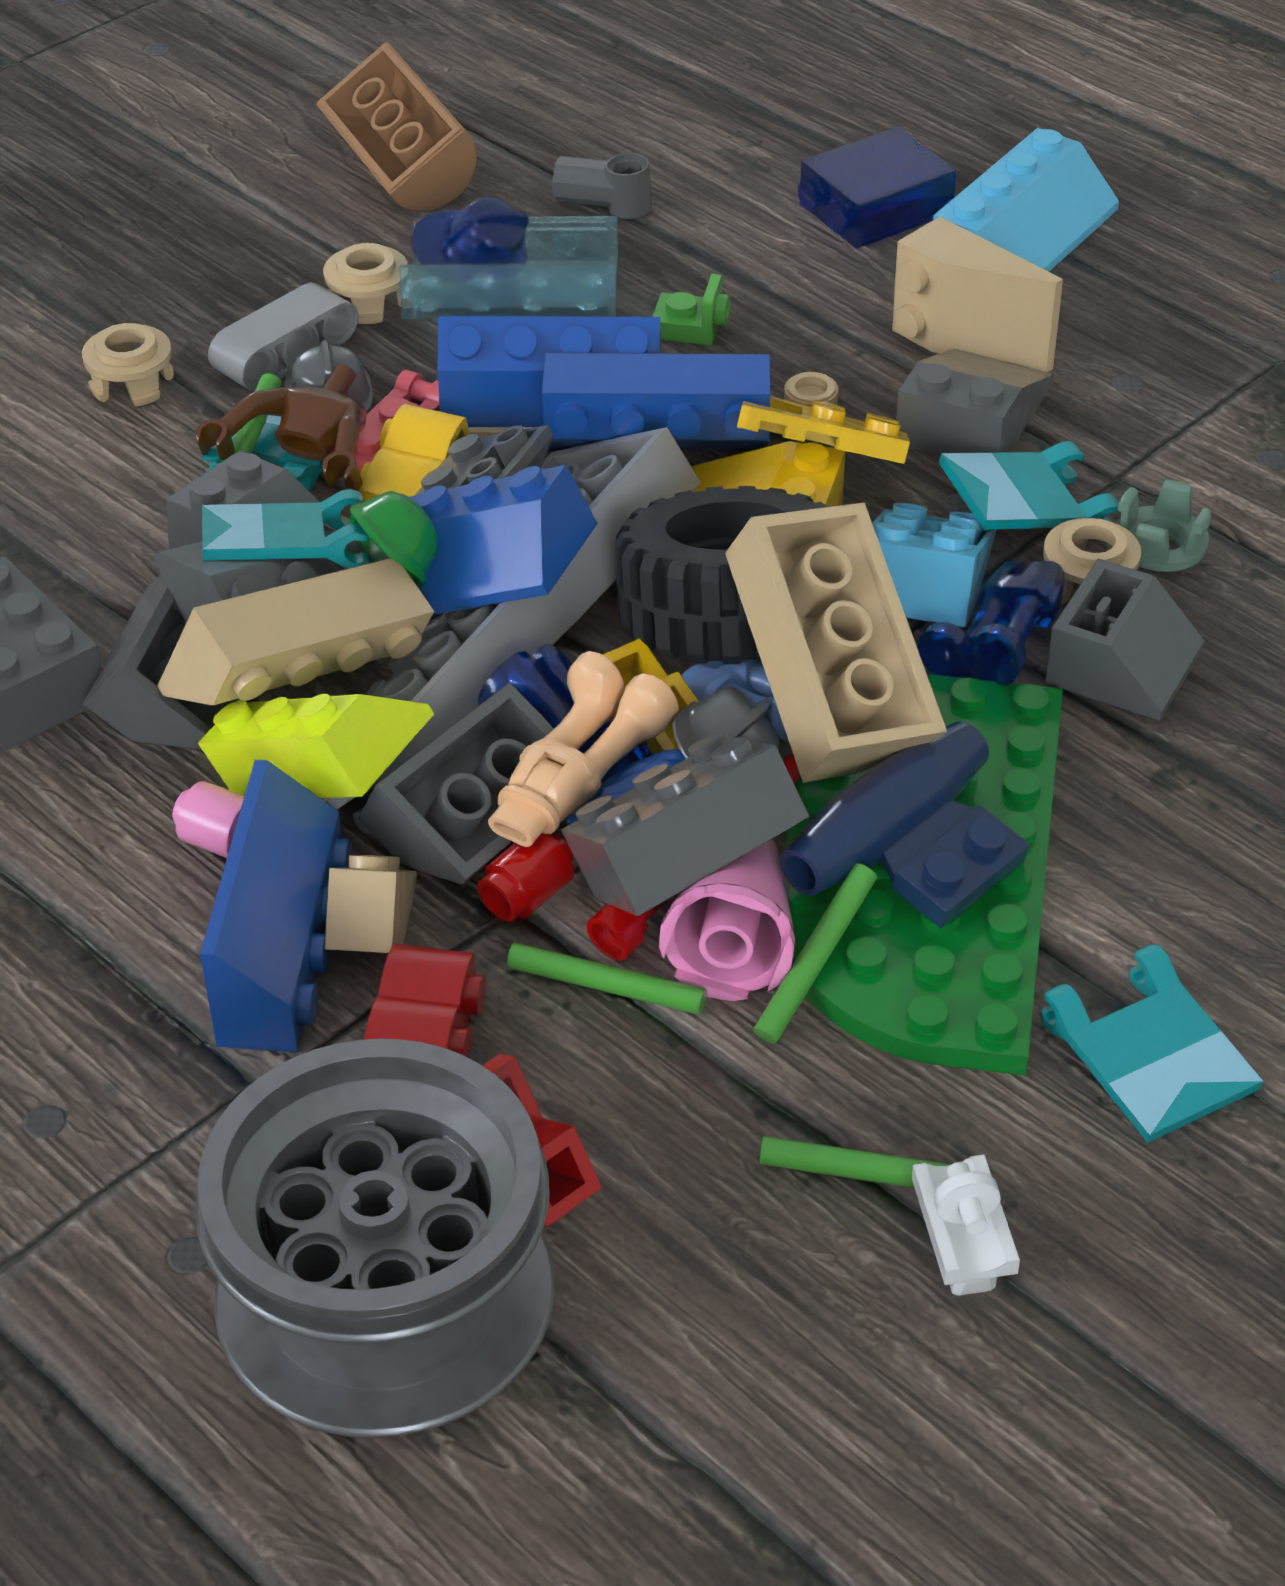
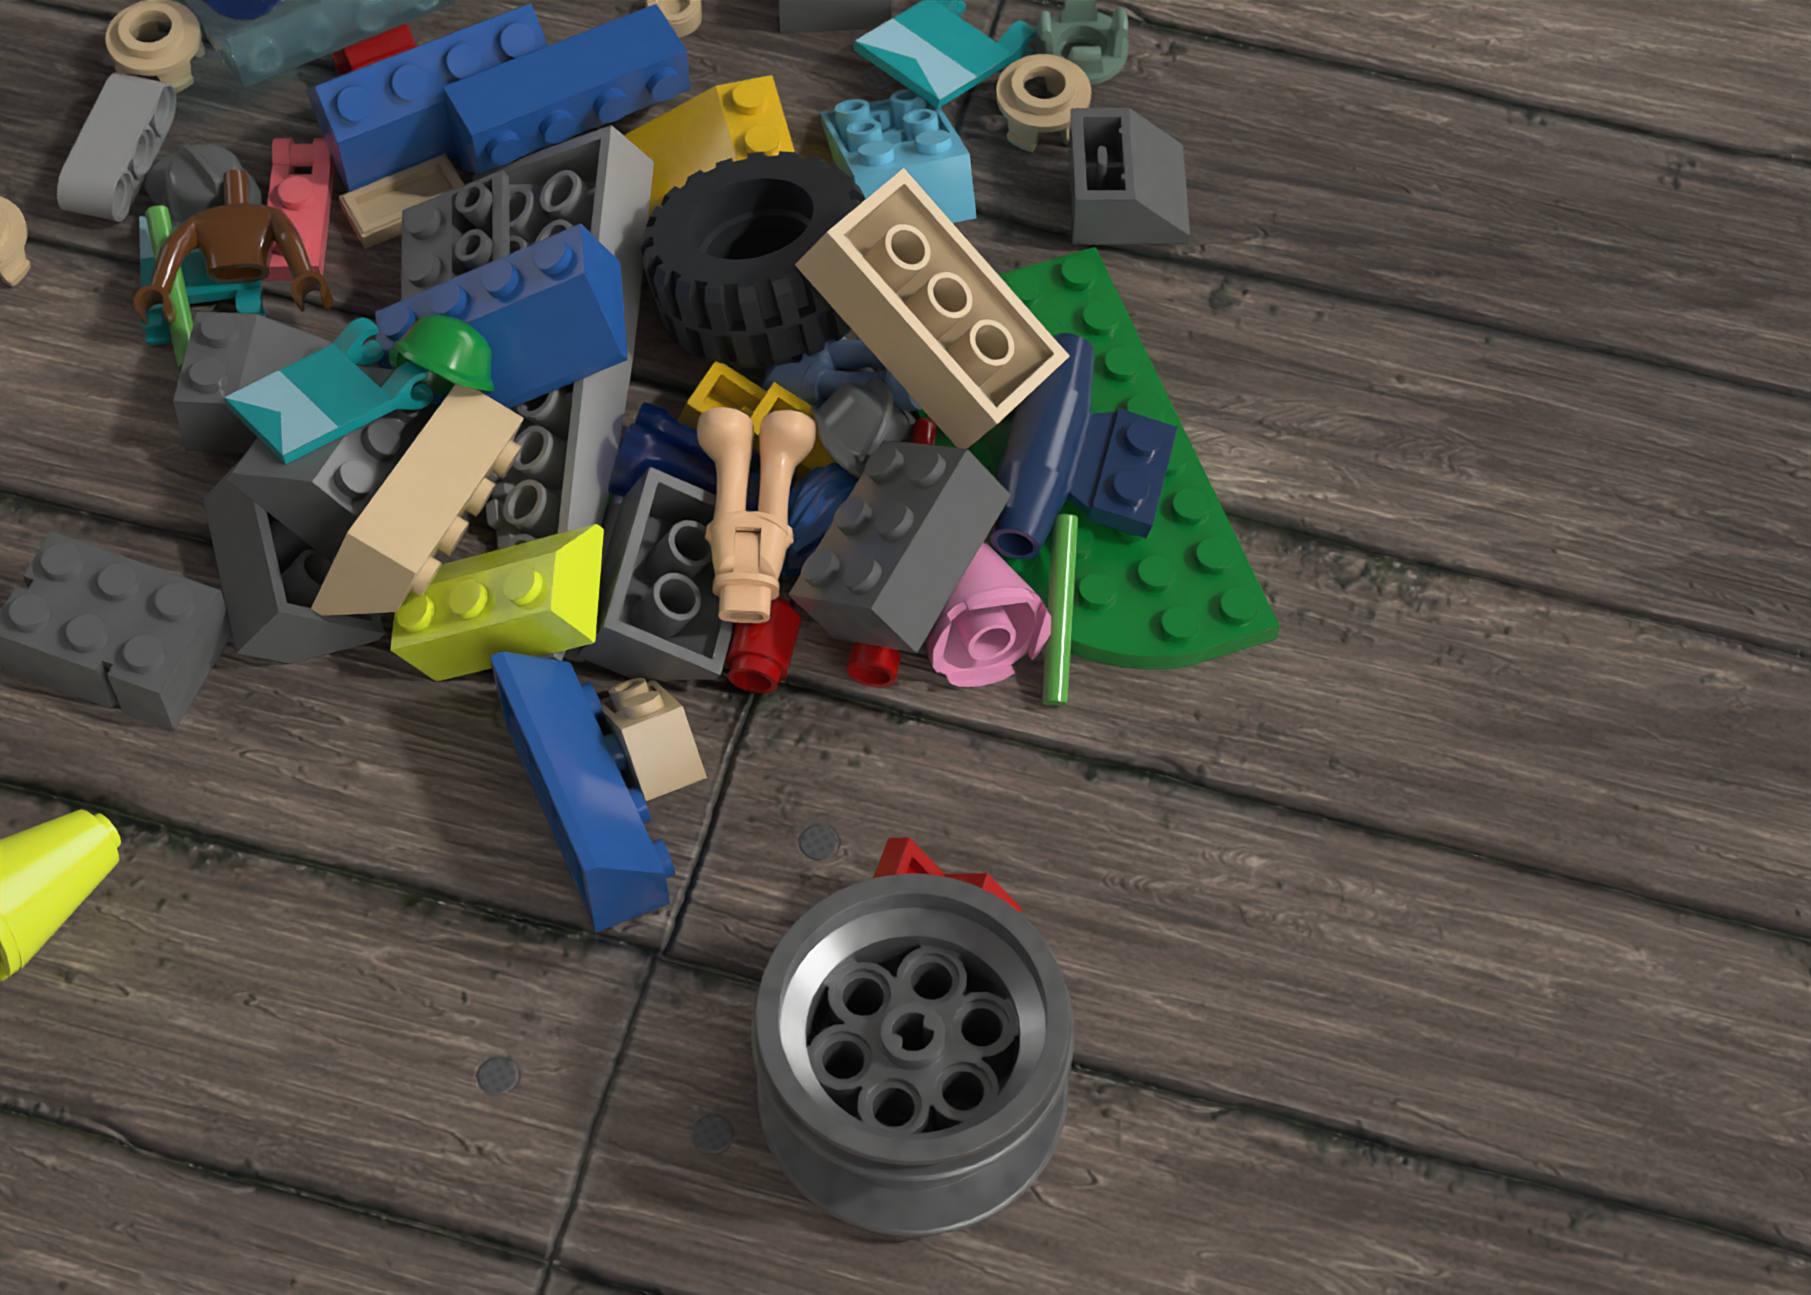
camera: 30 degrees left, 15 degrees up
(207, 816) = (453, 715): bright pink brick -> none
(410, 449) = (364, 247): yellow brick -> none
(427, 998) = (768, 822): red brick -> none
(607, 978) = (889, 709): bright green bar -> none
(827, 424) = (741, 50): yellow wing -> none
(839, 1161) = (1210, 783): bright green bar -> none
(966, 1224) = (1326, 799): white hips -> none
(1008, 610) = (1006, 174): clear blue piece -> none
(1157, 1056) = (1368, 570): teal flag -> none

